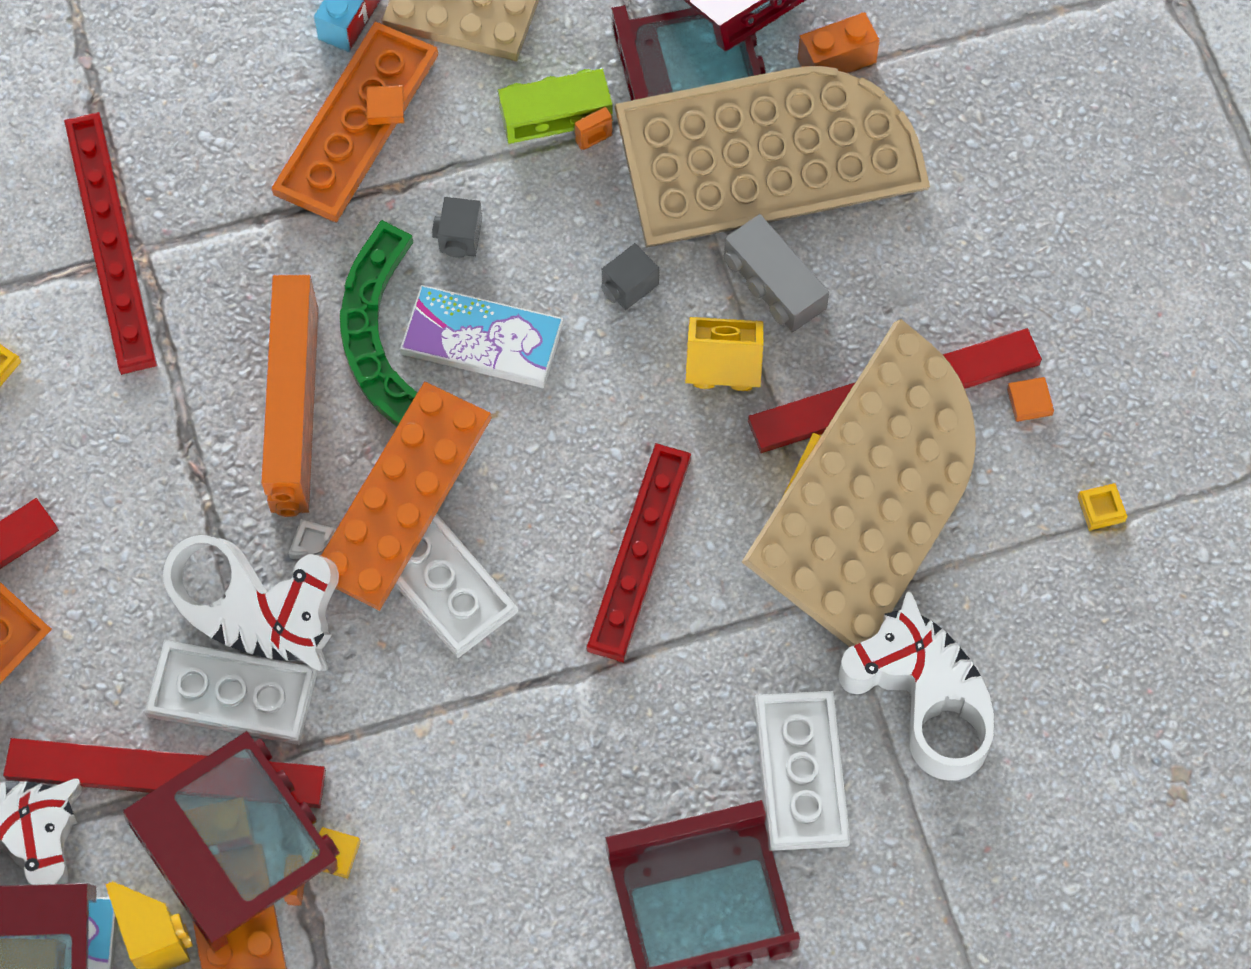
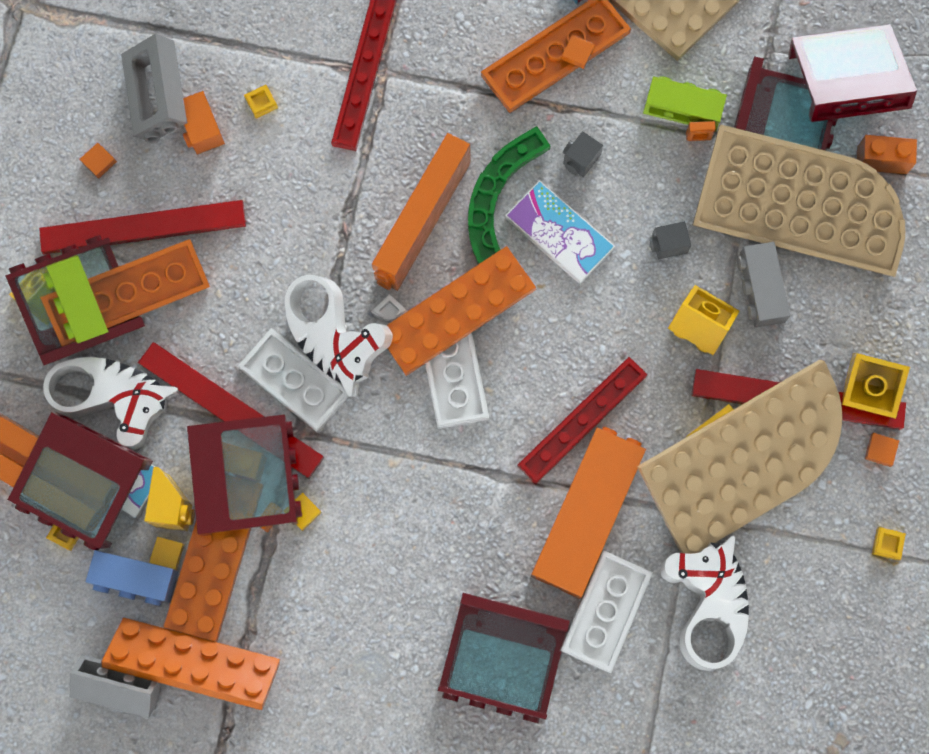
camera: 30 degrees right, 10 degrees up
(711, 659) = (588, 512): none -> orange brick
(977, 322) = (874, 385): none -> yellow slope

